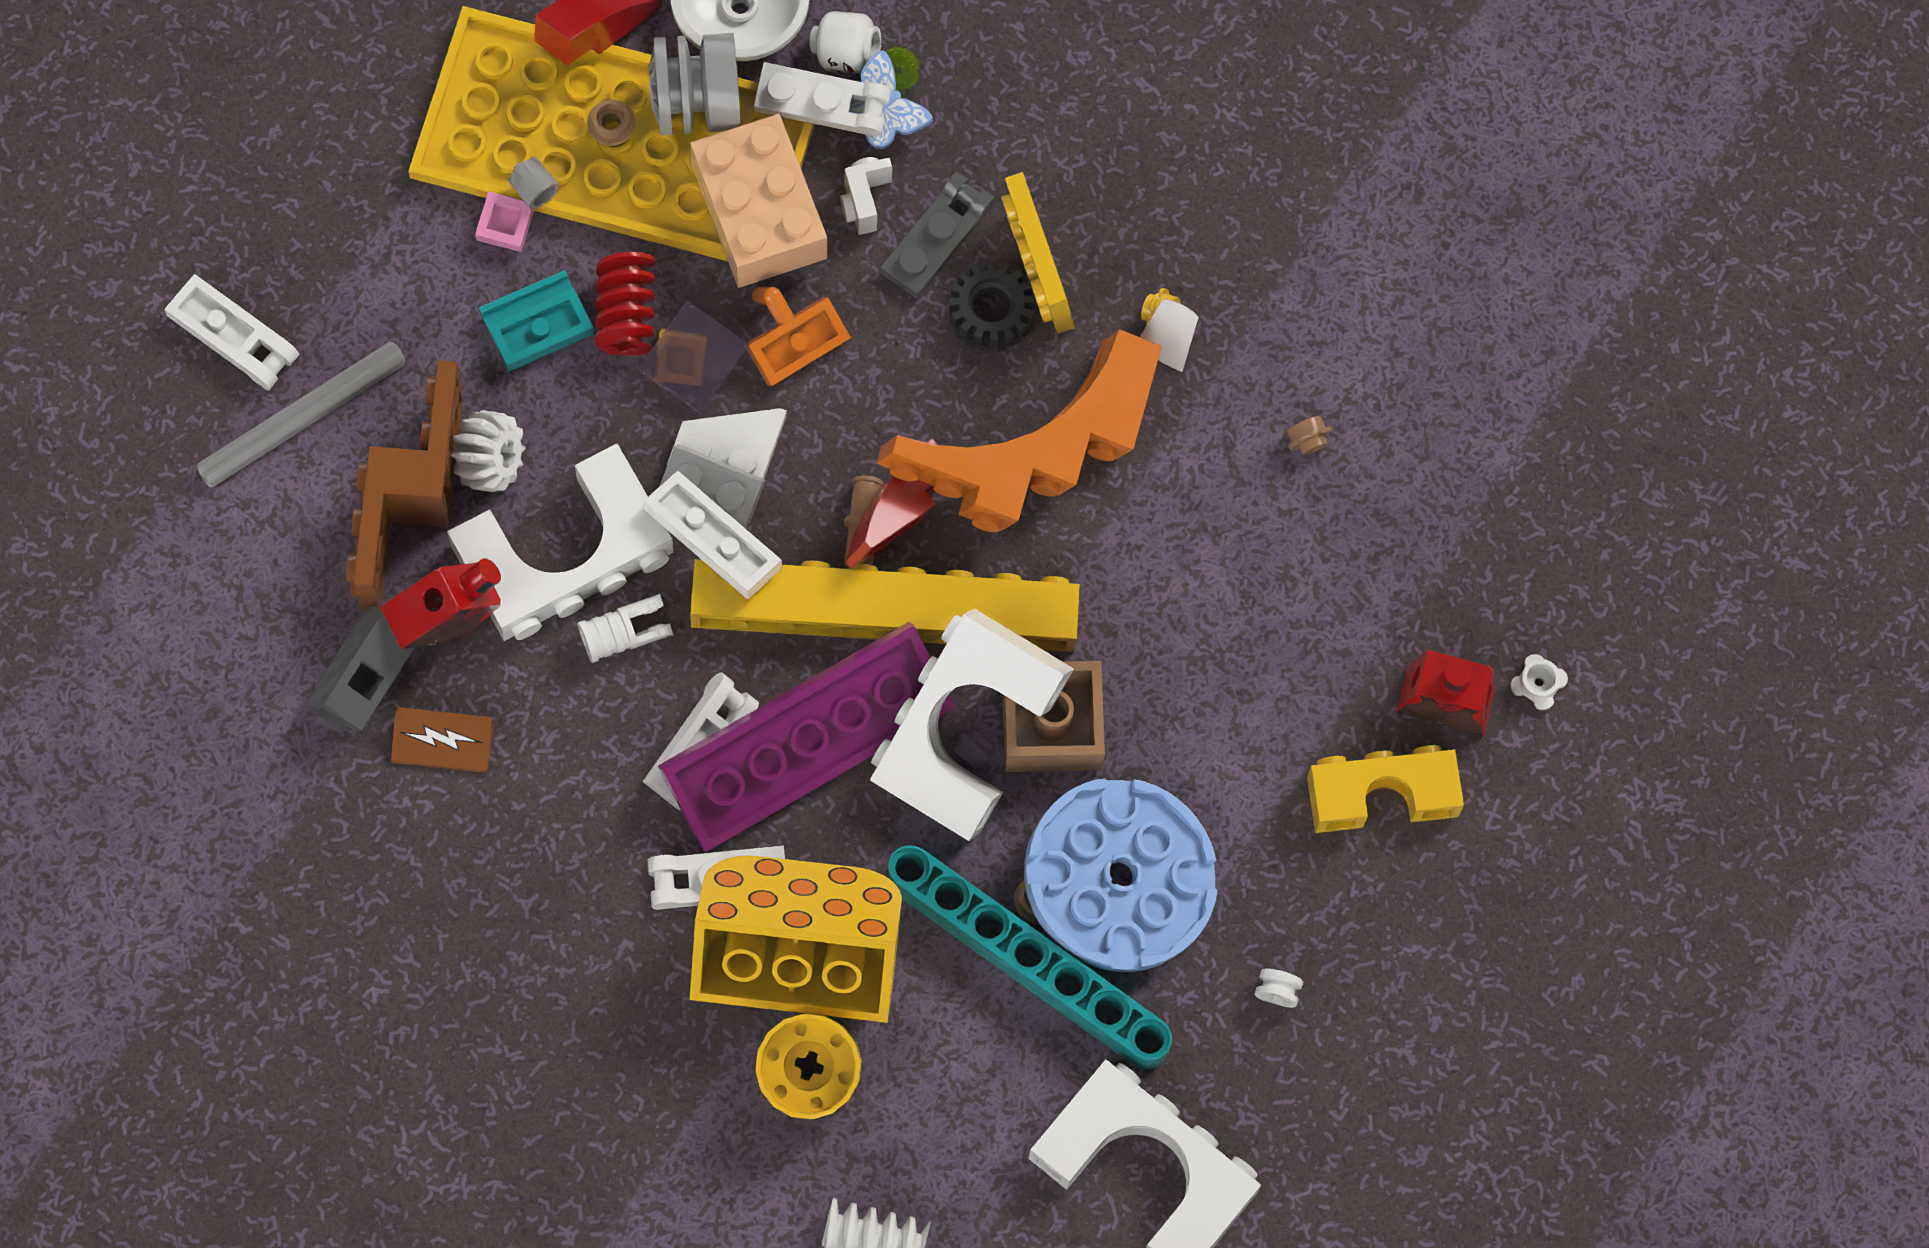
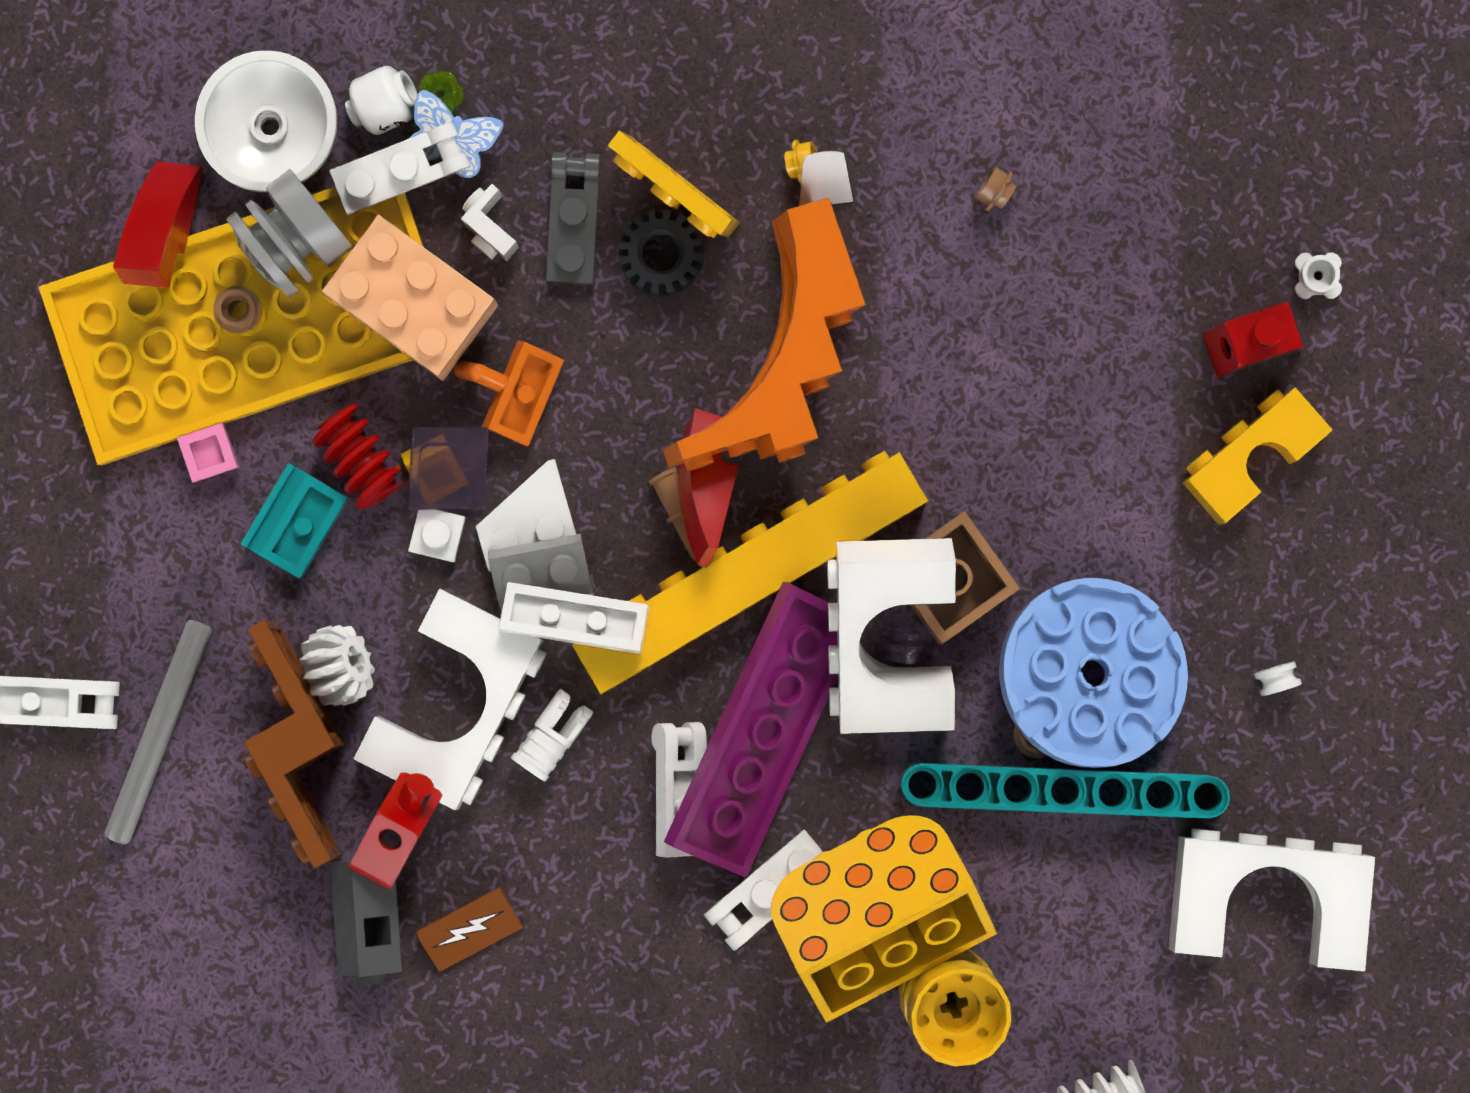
camera: 30 degrees left, 15 degrees up
(533, 183) = (210, 408): light grey hose -> none
(646, 409) = (437, 534): none -> white plate

